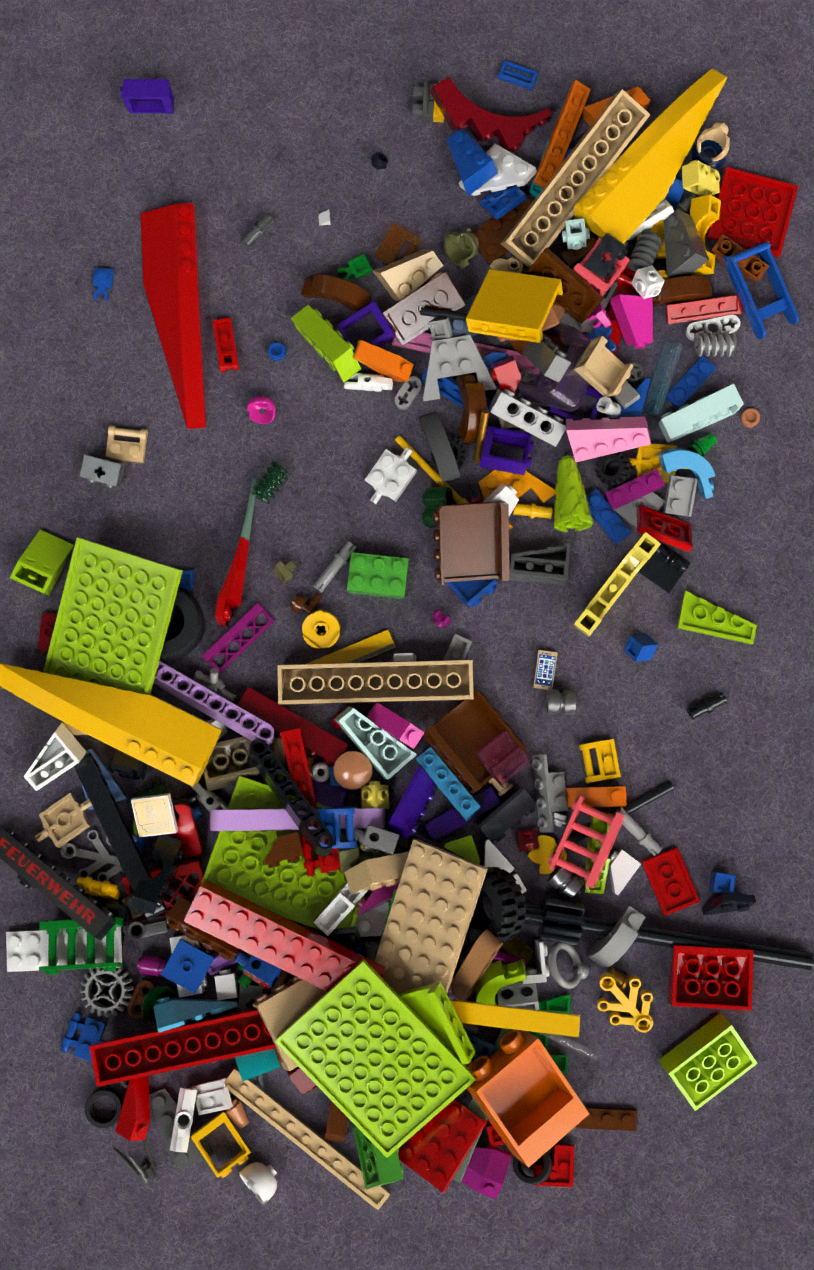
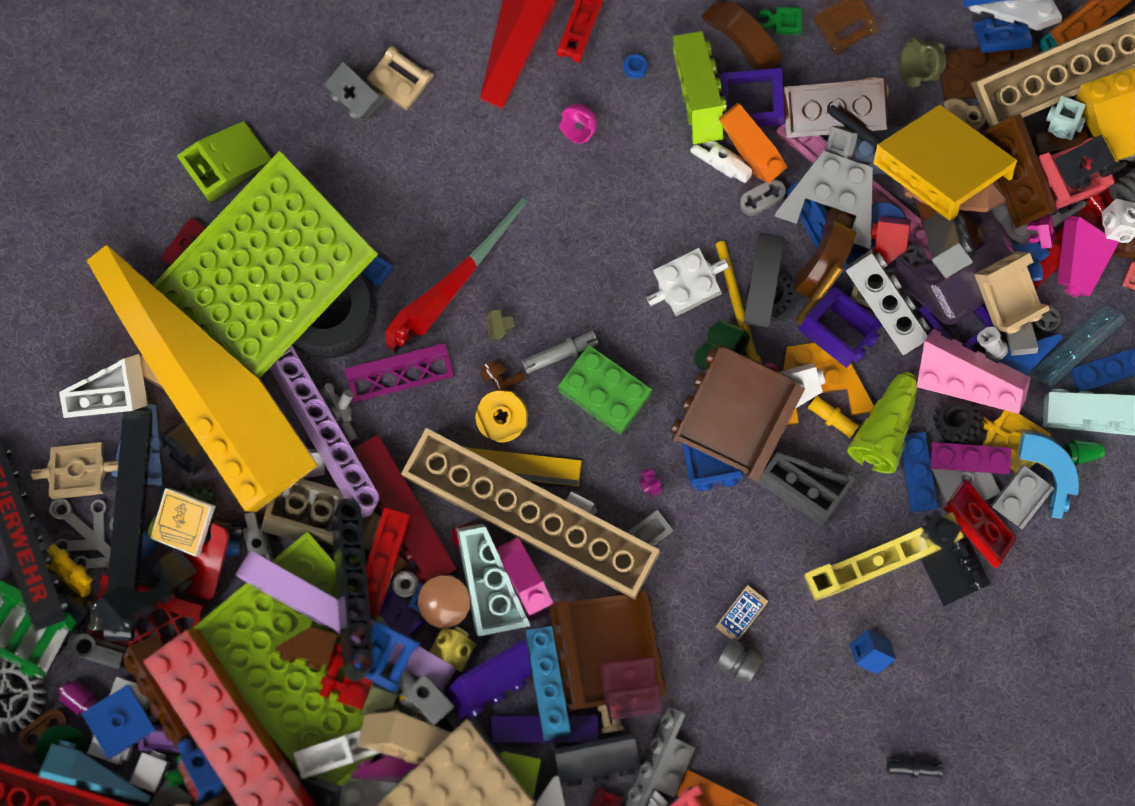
camera: 30 degrees right, 5 degrees down
(270, 482) = (540, 212): clear green piece -> none
(408, 274) = (841, 59): tan wedge -> none
(606, 760) = (755, 761): yellow plate -> none
(644, 548) = (939, 530): none -> black bracket
(707, 619) = (971, 661): lime wing -> none

